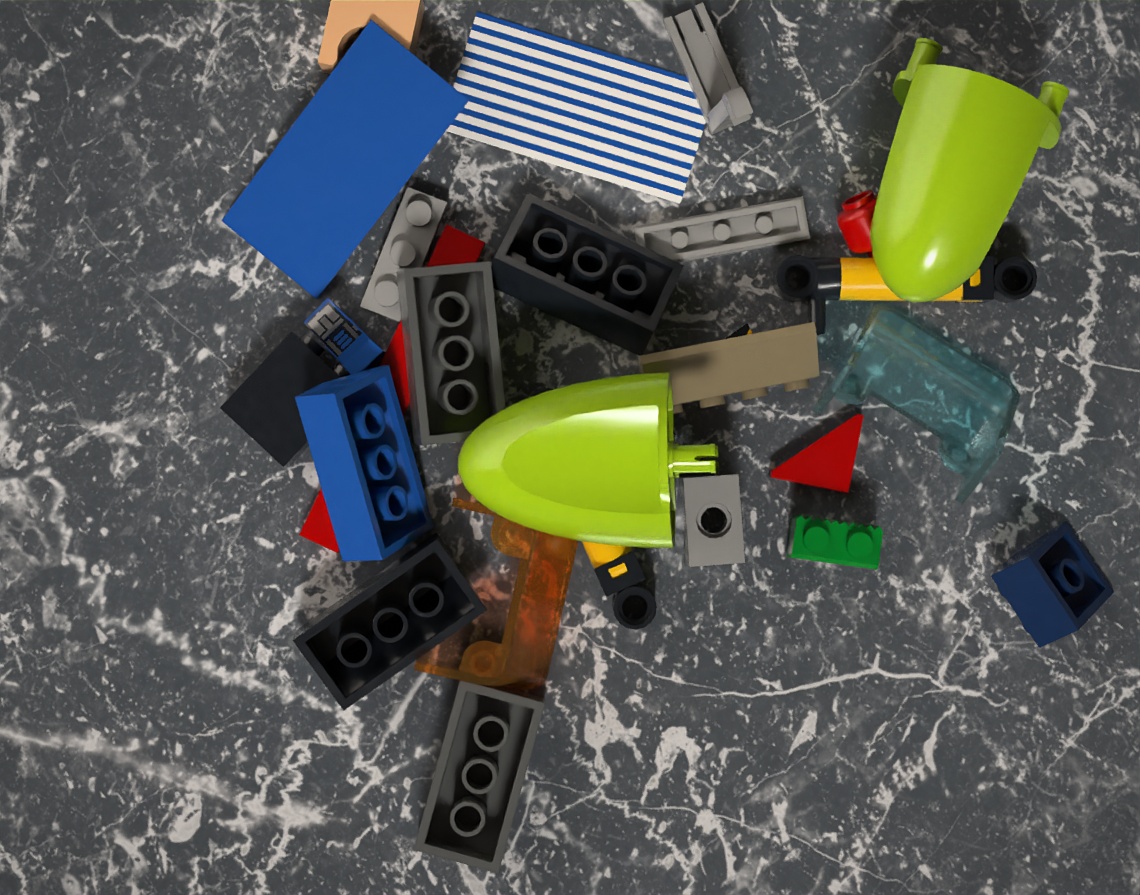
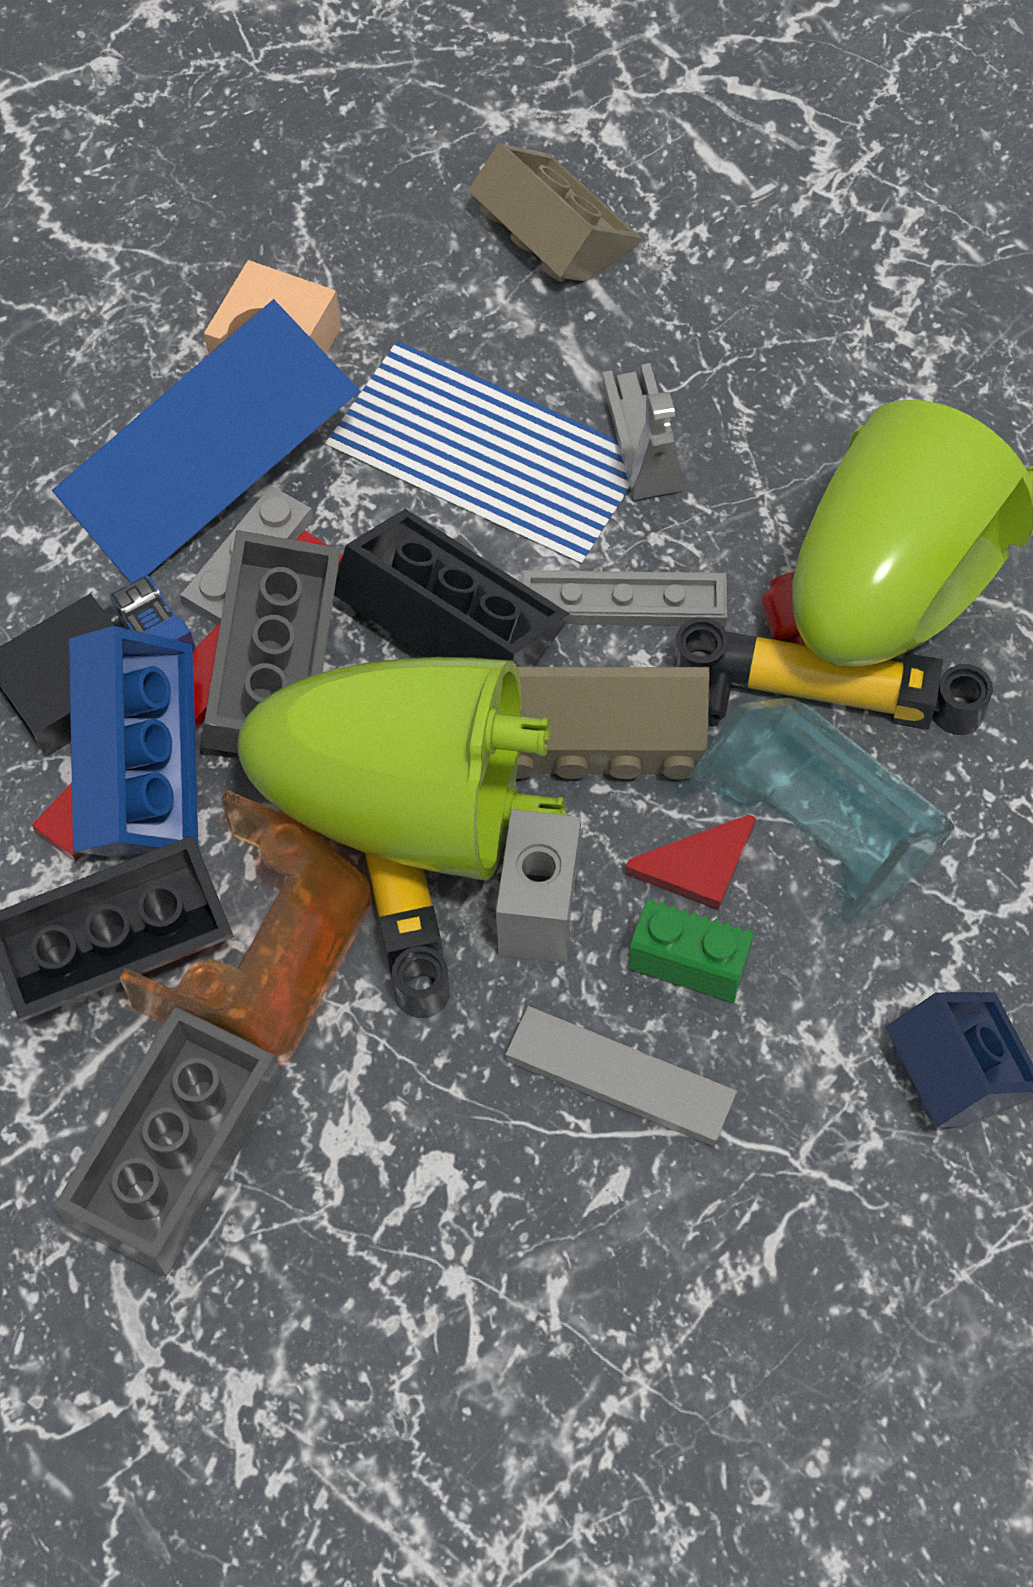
camera: 15 degrees right, 25 degrees down
(797, 645) = (621, 1076): none -> light grey tile

